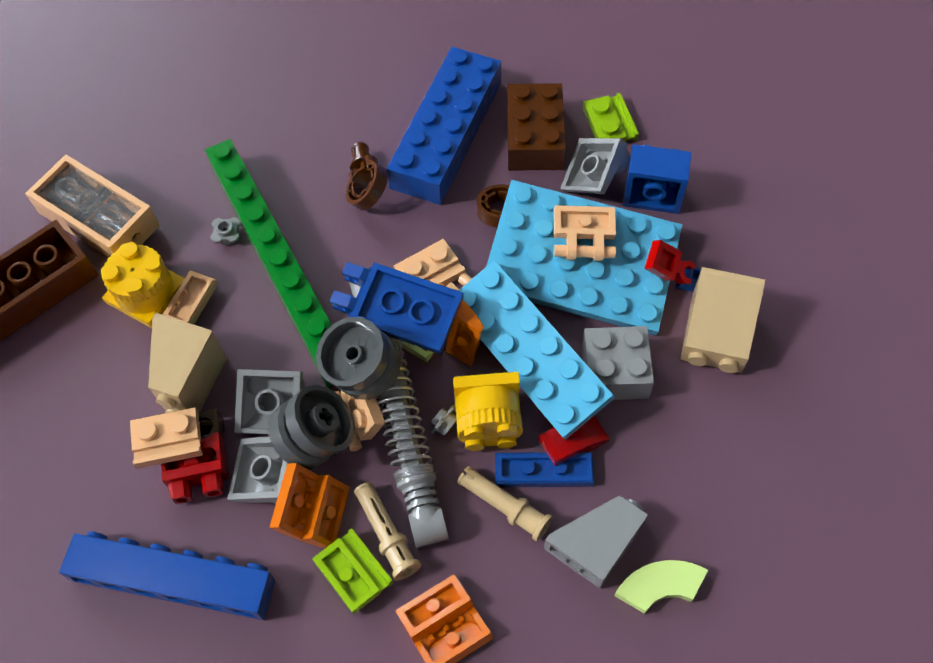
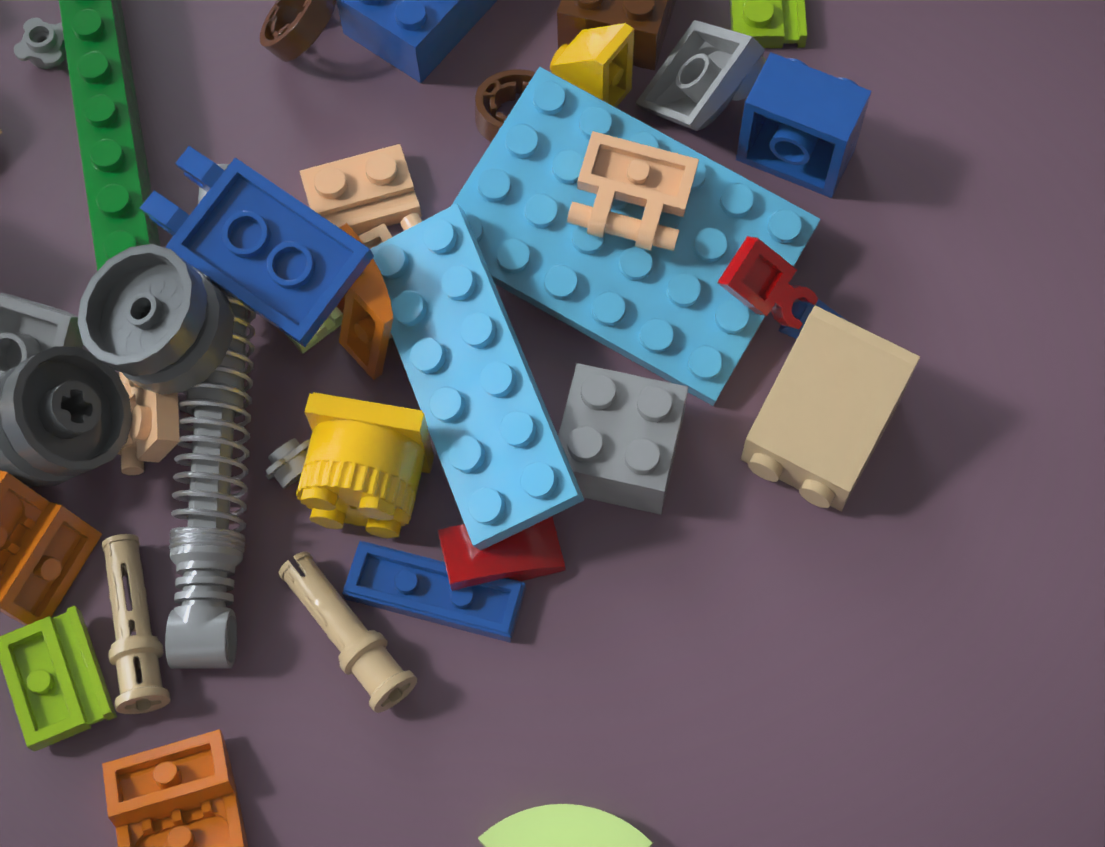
camera: 15 degrees right, 5 degrees up
(537, 168) = (598, 62): none -> yellow slope
(597, 539) = (482, 736): light grey slope -> none

